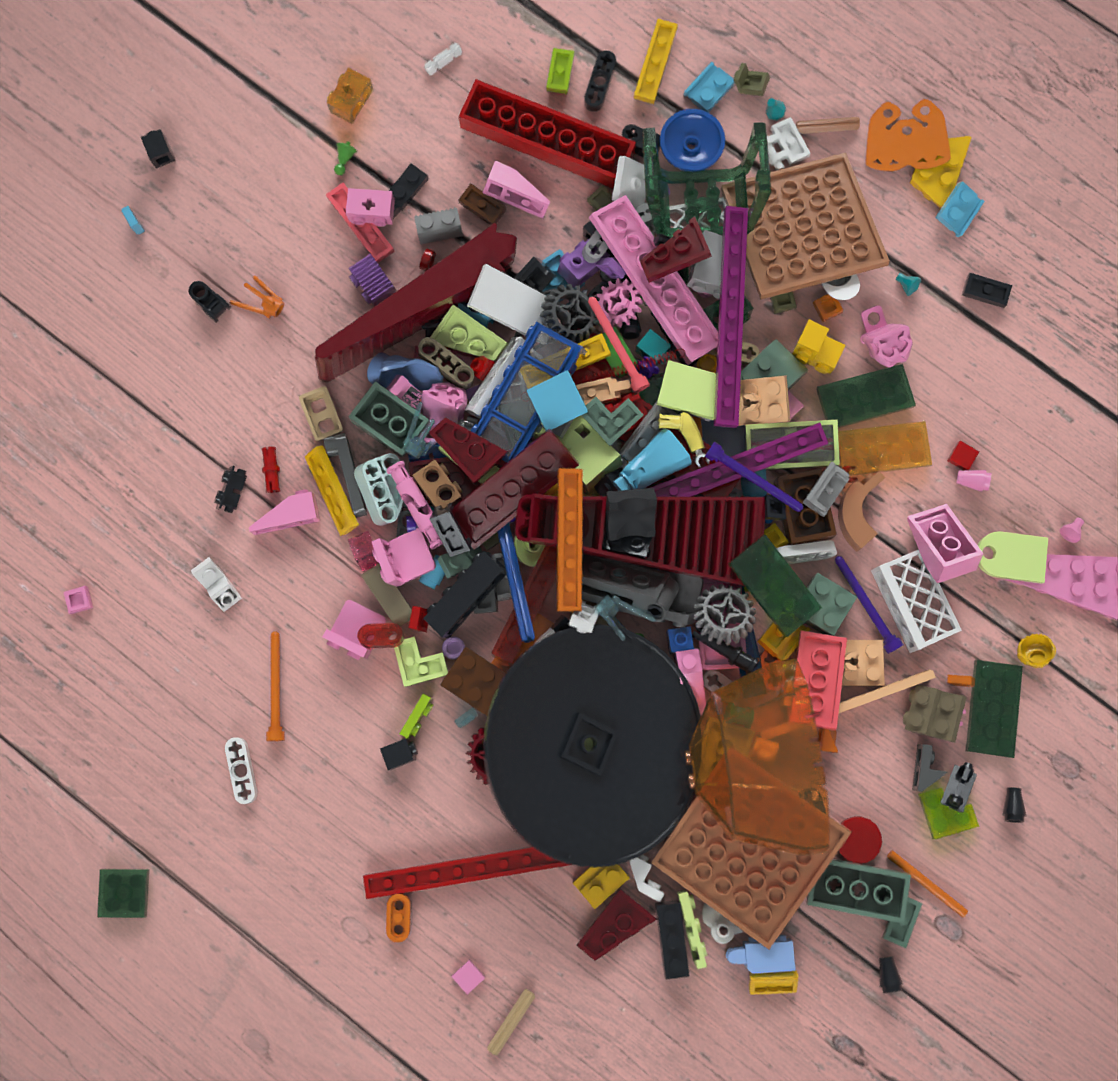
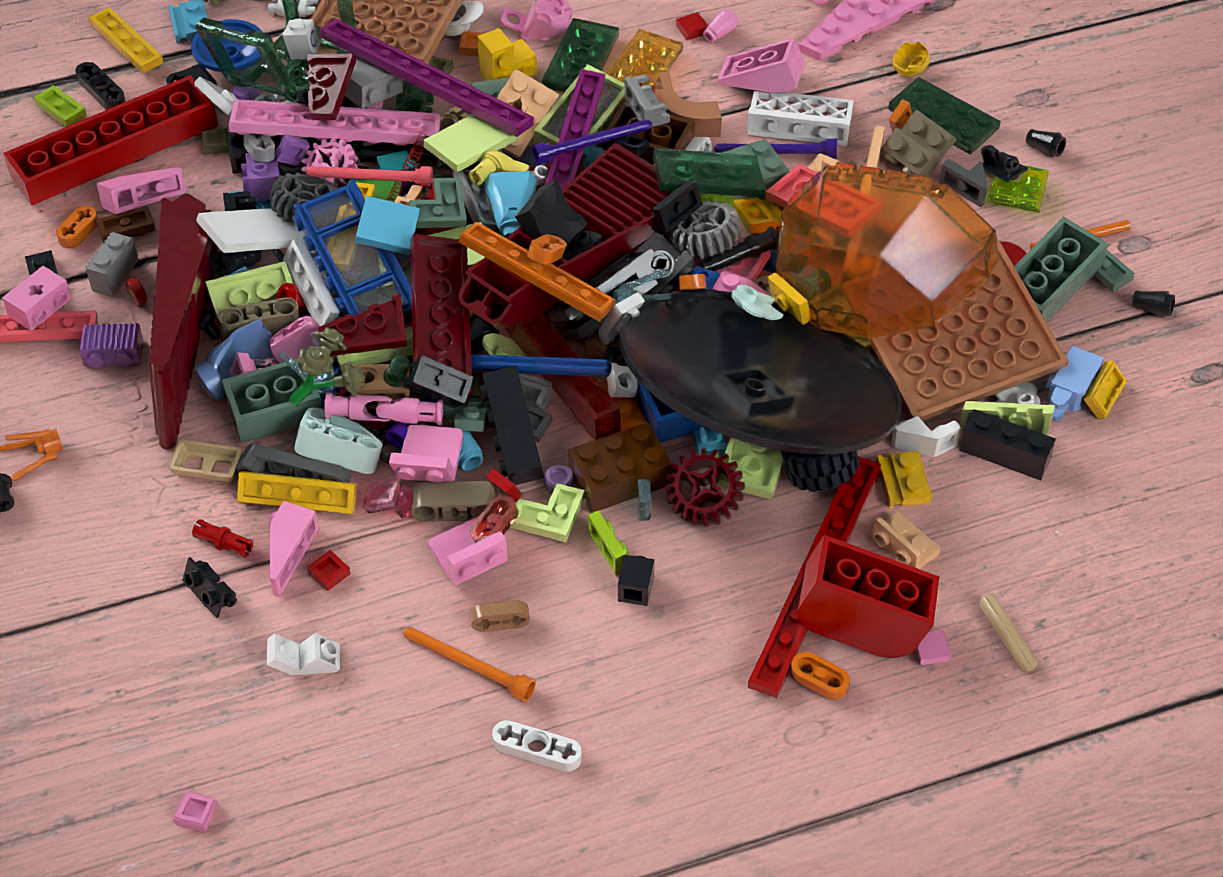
camera: 60 degrees left, 30 degrees down
(289, 552) = (328, 570): none -> red tile
(317, 685) = (500, 616): none -> medium nougat beam
(396, 448) = (317, 360): none -> olive plant
(443, 496) = (397, 370): none -> clear green hinge
(457, 926) = (866, 599): none -> red brick
(461, 173) = (77, 226): none -> orange beam
(545, 912) = (904, 541): none -> light nougat bracket
(591, 540) = (546, 249): none -> orange beam
(615, 924) = (959, 486): dark red wing -> none
(658, 641) = (692, 282): none -> orange beam
(672, 699) = (755, 302): none -> light aqua plate
(694, 714) = (789, 298): none -> yellow plate
(720, 193) = (301, 38): none -> white brick
(720, 586) = (677, 206): none -> black plate
(1015, 556) = (815, 29): yellowish green tile -> none

